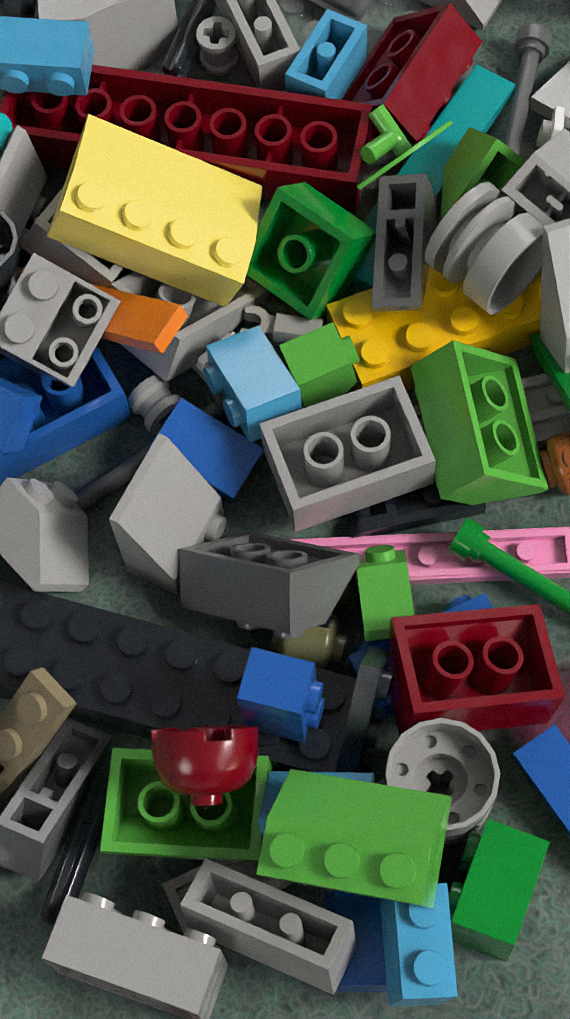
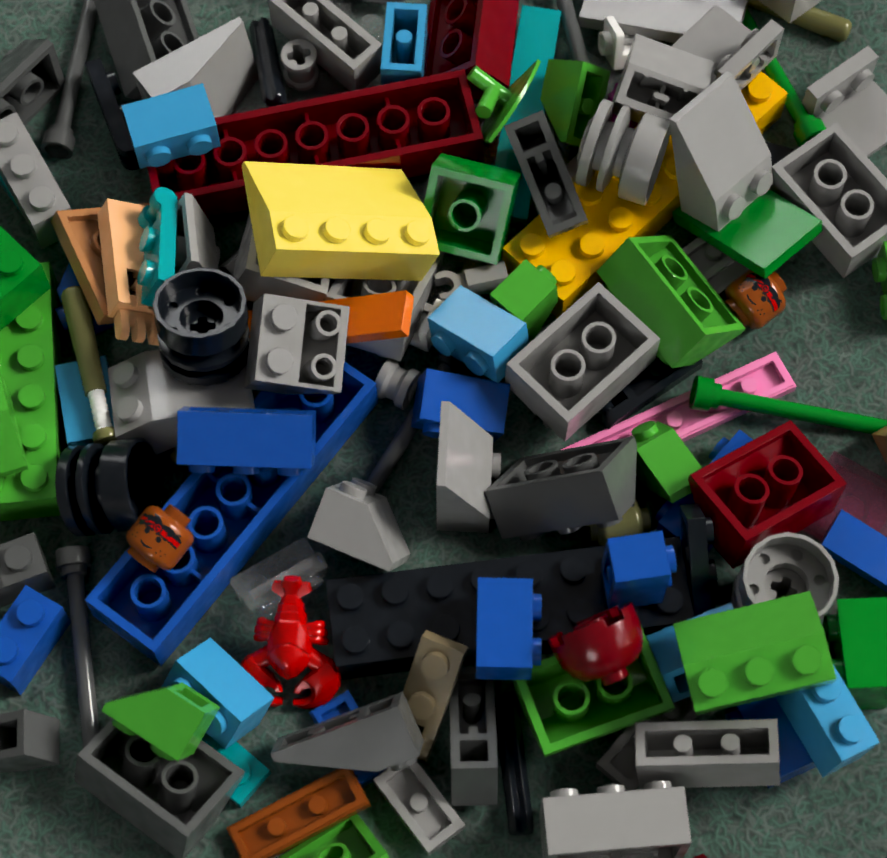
camera: 30 degrees left, 0 degrees up
(119, 700) = (506, 628): none -> blue brick

